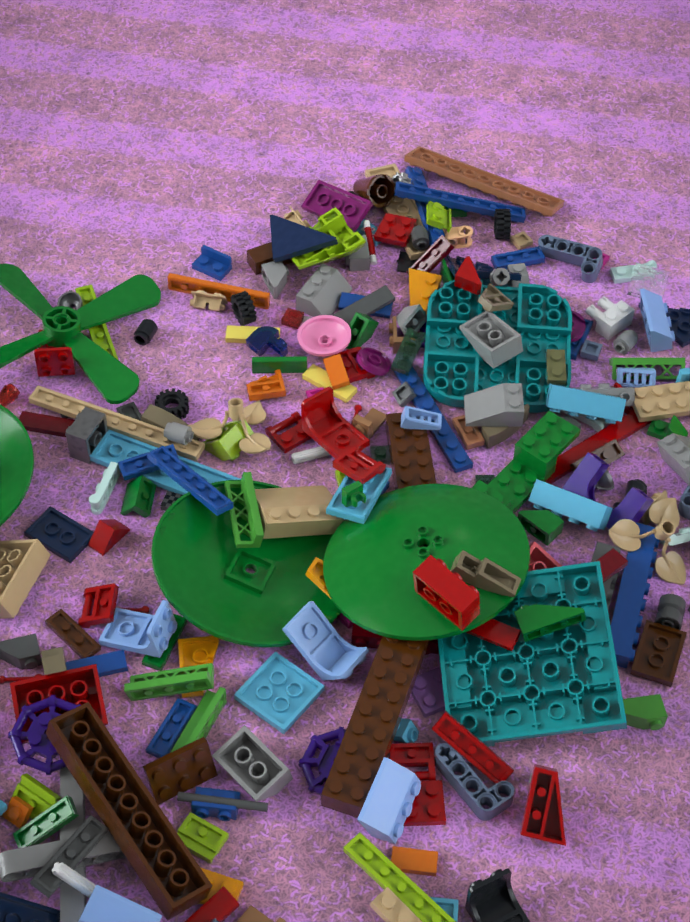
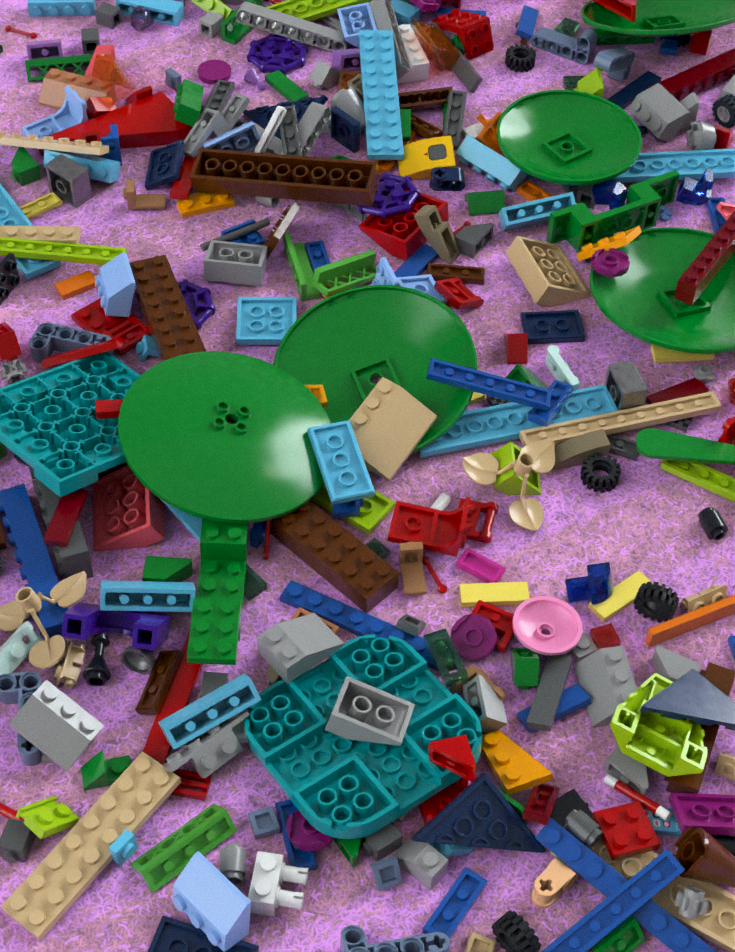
camera: 140 degrees right, 0 degrees up
(178, 433) = (552, 428): light grey brick -> none
(202, 837) = (231, 216): lime plate -> none
(249, 513) = (435, 404): bright green fence -> none
(266, 387) = (542, 547): orange wing -> none
(285, 364) = (557, 573): green tile -> none
(322, 645) = (271, 347): light blue bracket -> none
(336, 371) = (494, 597): orange tile -> none
(353, 494) = (333, 432): green tile -> none
(358, 465) = (362, 468): red plate -> none
(414, 419) = (356, 565): light blue slope -> none
(438, 216) = (592, 874): lime plate -> none
(447, 592) = (167, 363): red brick -> none
(485, 574) = (150, 405): dark tan slope -> none
(494, 300) = (405, 755): dark tan wing -> none
(495, 276) = (430, 805): light grey wheel -> none
(544, 619) = (77, 422): green slope -> none
(556, 366) = (274, 735): olive plate -> none
(652, 377) = (178, 819): light blue slope -> none

